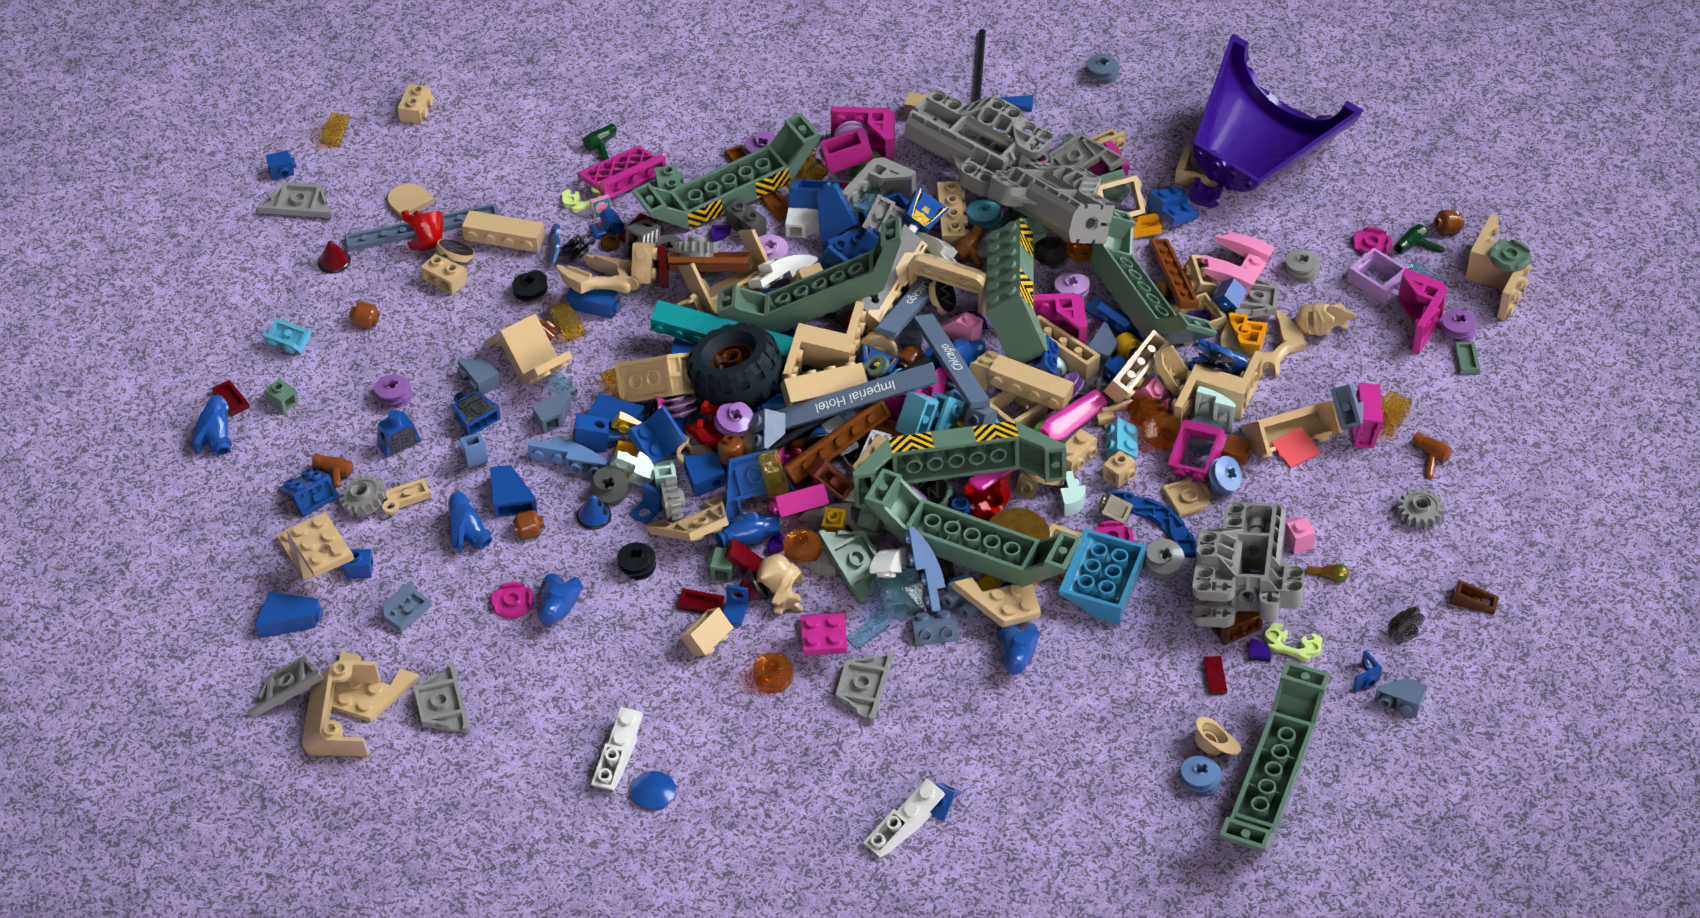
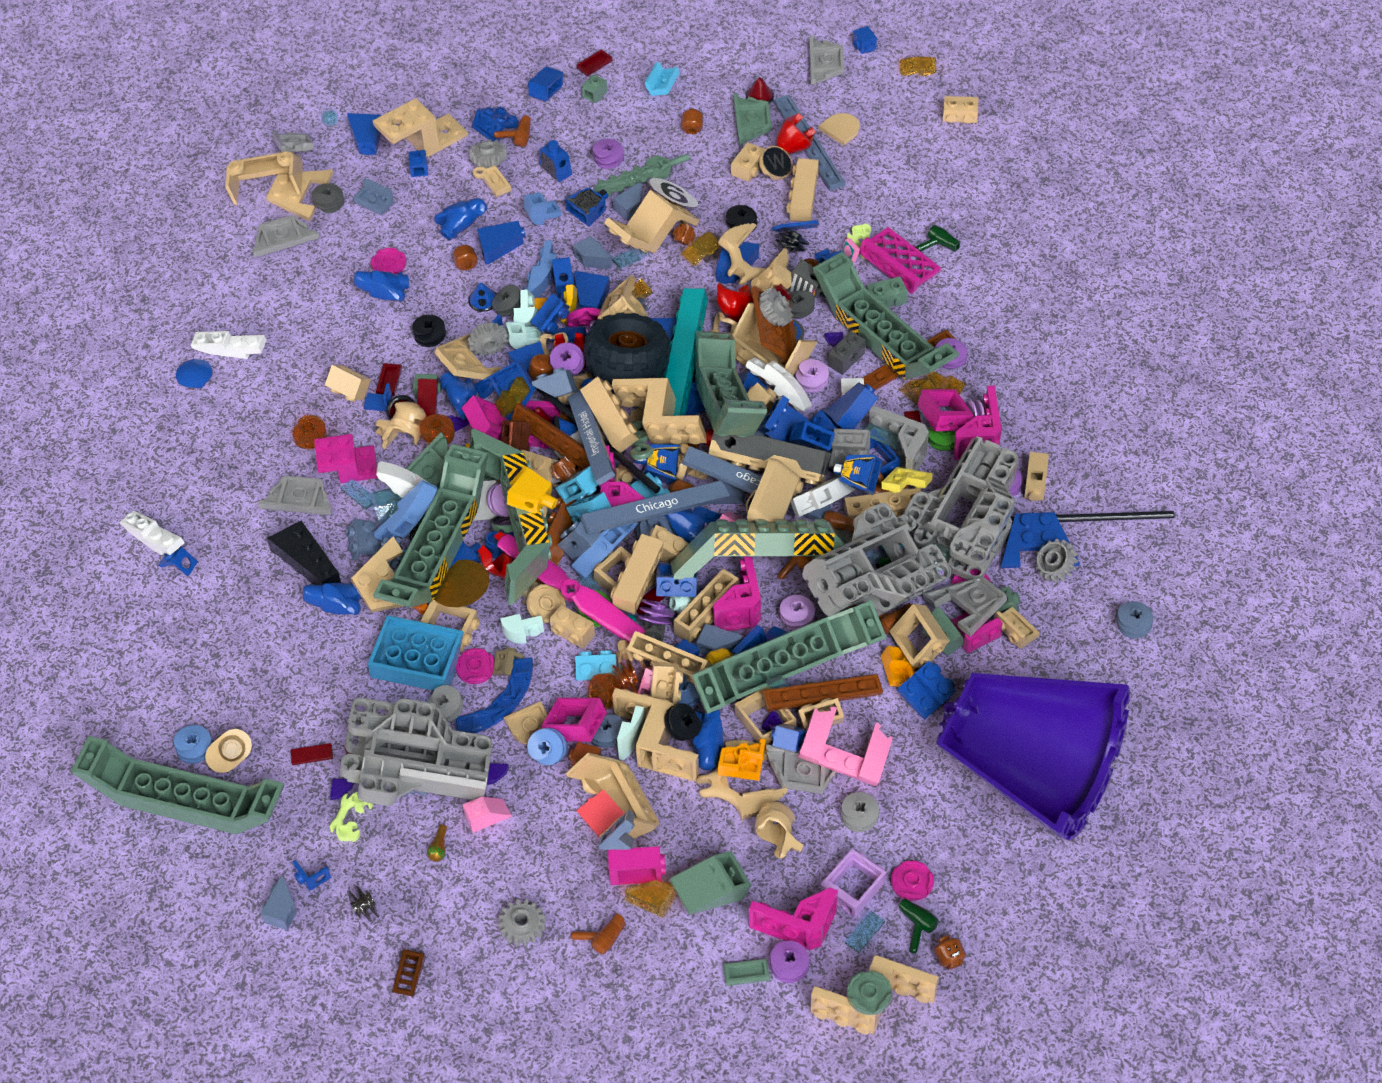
camera: 85 degrees right, 5 degrees up
(213, 427) = (554, 54): blue animal -> none
(243, 654) = (329, 118): none -> clear light blue tile
(260, 437) = (545, 83): none -> blue brick
(371, 267) = (751, 118): none -> sand green wing
(391, 653) = (328, 197): none -> dark grey piece
(428, 354) = (654, 168): none -> sand green bar
(482, 332) = (673, 192): none -> white sticker
(667, 290) = (733, 303): none -> red piece
(804, 193) = (896, 385): blue window -> none
(892, 426) = (563, 469): none -> dark orange gear
(929, 183) = (901, 477): none -> light yellow plate
(953, 425) = (531, 492): none -> yellow torso
(957, 672) = (302, 552): none -> black wedge
(1039, 95) = (1065, 556): none -> light grey gear
(1119, 469) = (552, 661): tan brick -> none
(1171, 292) = (777, 682): none -> clear light blue piece
(1384, 363) = (711, 883): none -> sand green slope

